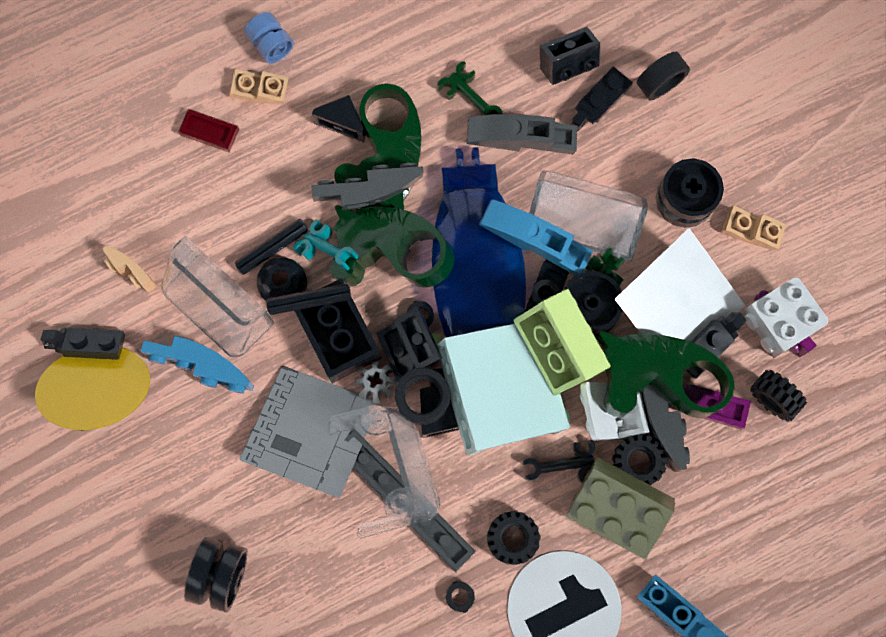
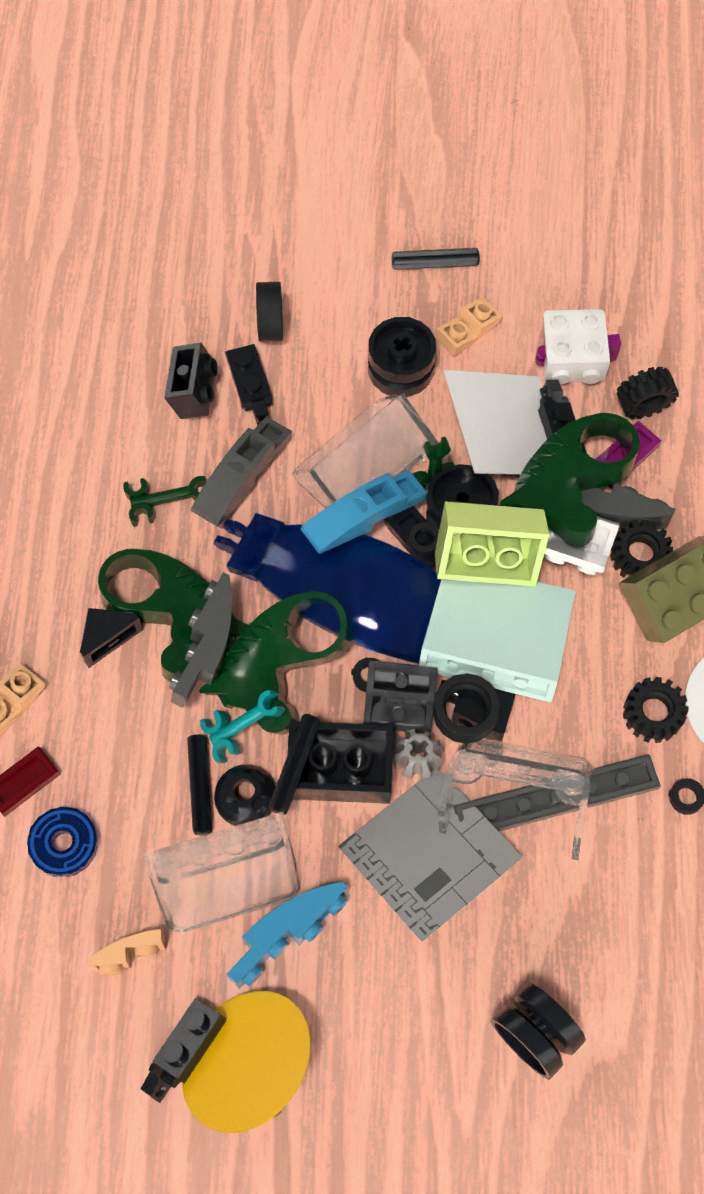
camera: 60 degrees left, 10 degrees down
(174, 169) = (51, 825): none -> clear blue tile
(583, 461) = (612, 602): black bar -> none
(797, 170) = (435, 258): none -> black axle

